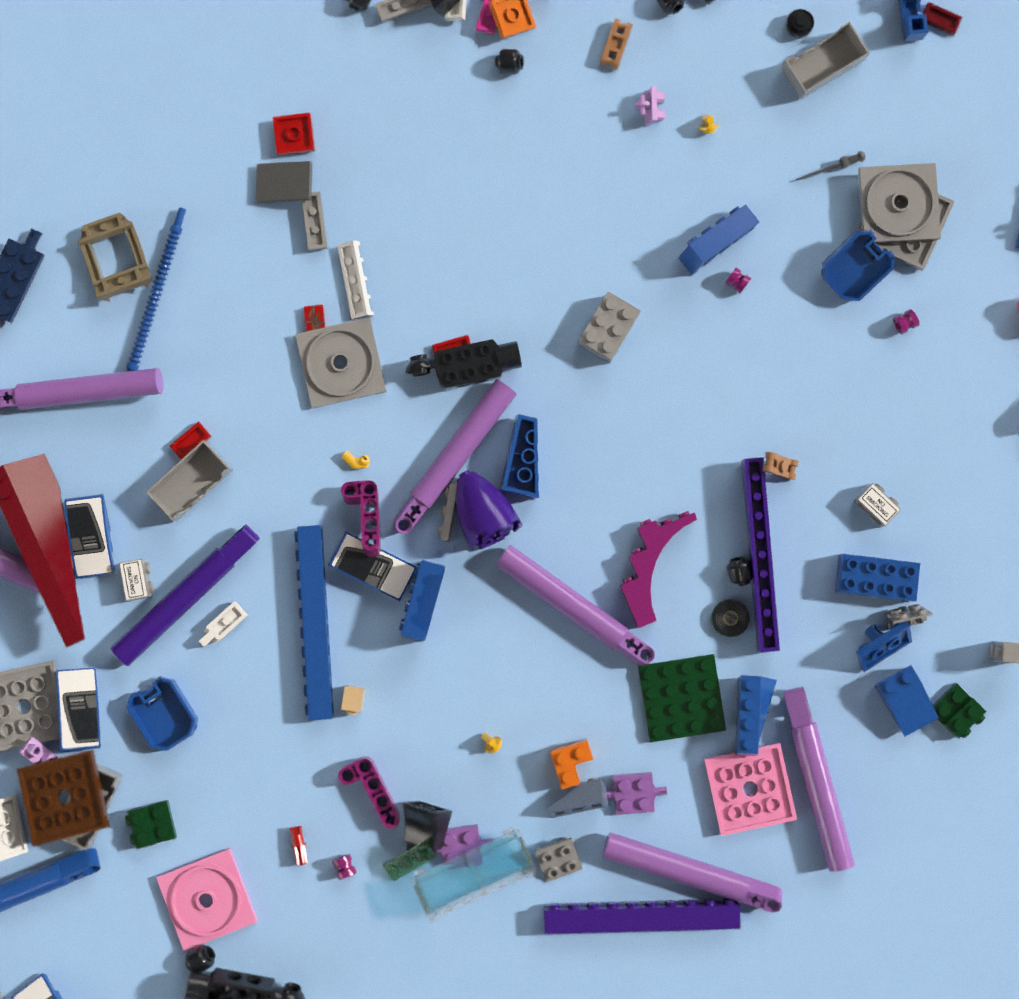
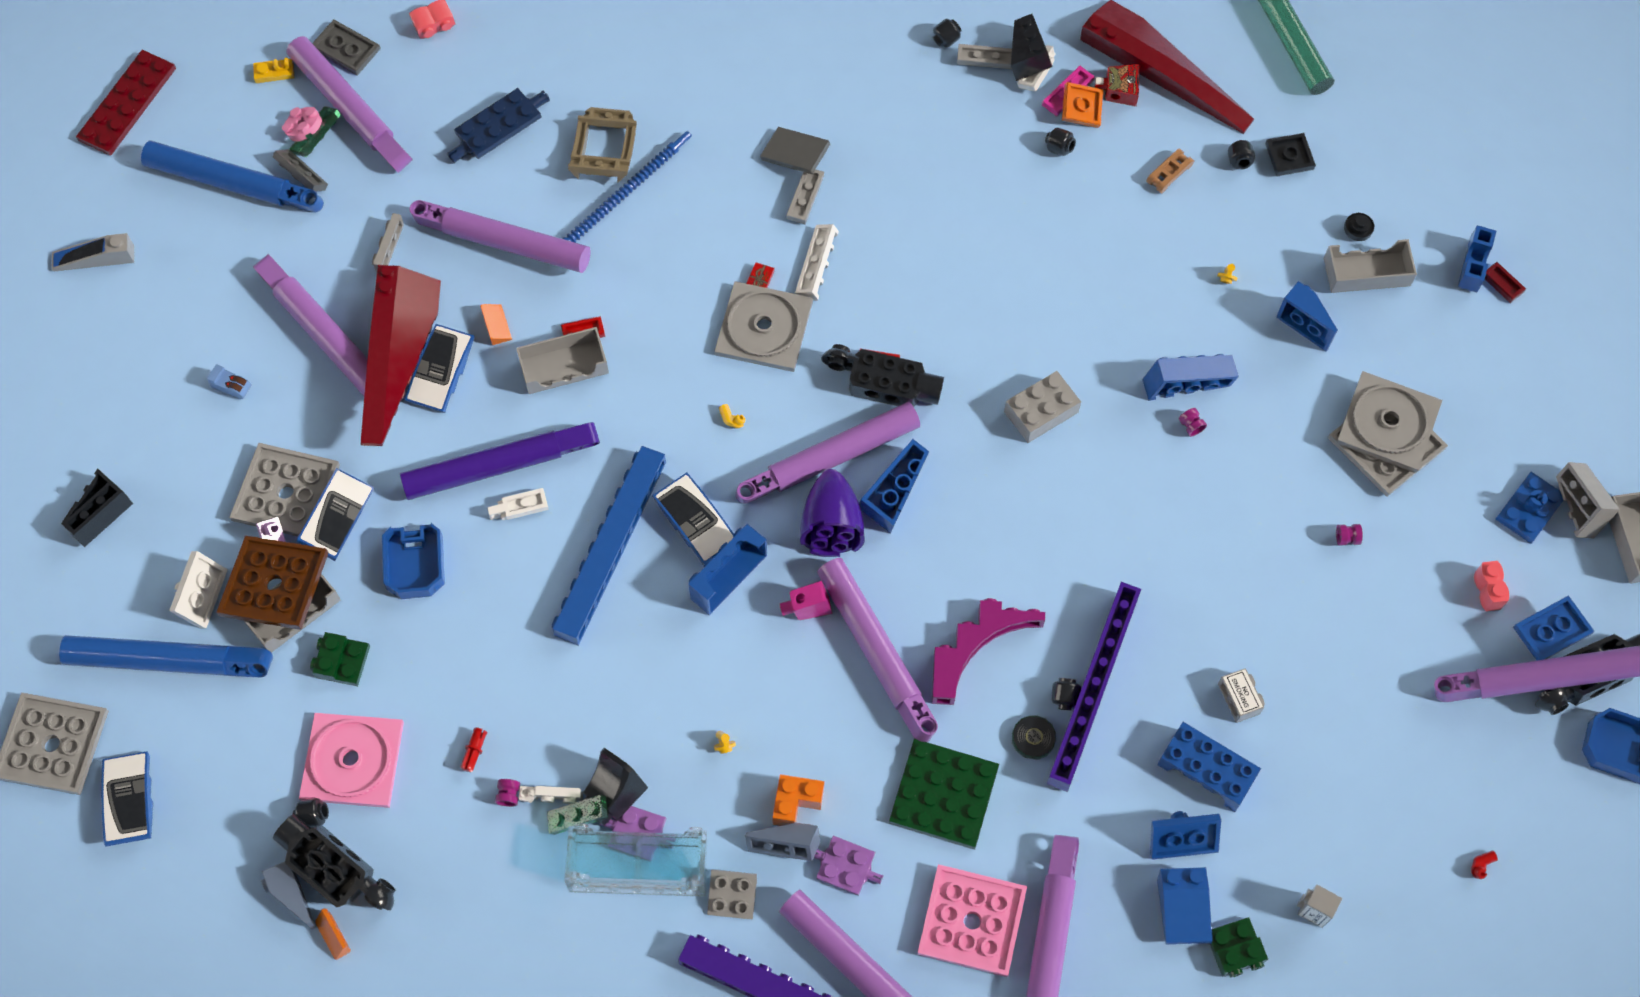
camera: 25 degrees right, 20 degrees down
(113, 471) = (496, 323): none -> slope
(136, 579) = (460, 426): brick -> none
(293, 134) = (826, 116): red plate -> none
(353, 699) = (607, 633): tan brick -> none
(367, 518) = (723, 452): magenta beam -> none
(373, 793) = (579, 735): magenta beam -> none
(377, 851) = (548, 794): none -> white hinge
(448, 513) = (795, 506): light grey plate -> none
(505, 591) = (808, 602): none -> dark pink torso
(648, 106) = (1175, 232): lavender hips -> none
(753, 702) = (1017, 832): blue wedge -> none
(780, 466) = (1154, 608): medium nougat plate -> none
(792, 135) = (1307, 316): none -> blue slope
(844, 162) = (1350, 364): dark grey sword -> none
(852, 271) = (1313, 461): blue piece -> none
(914, 613) = (1235, 819): light grey hinge -> none

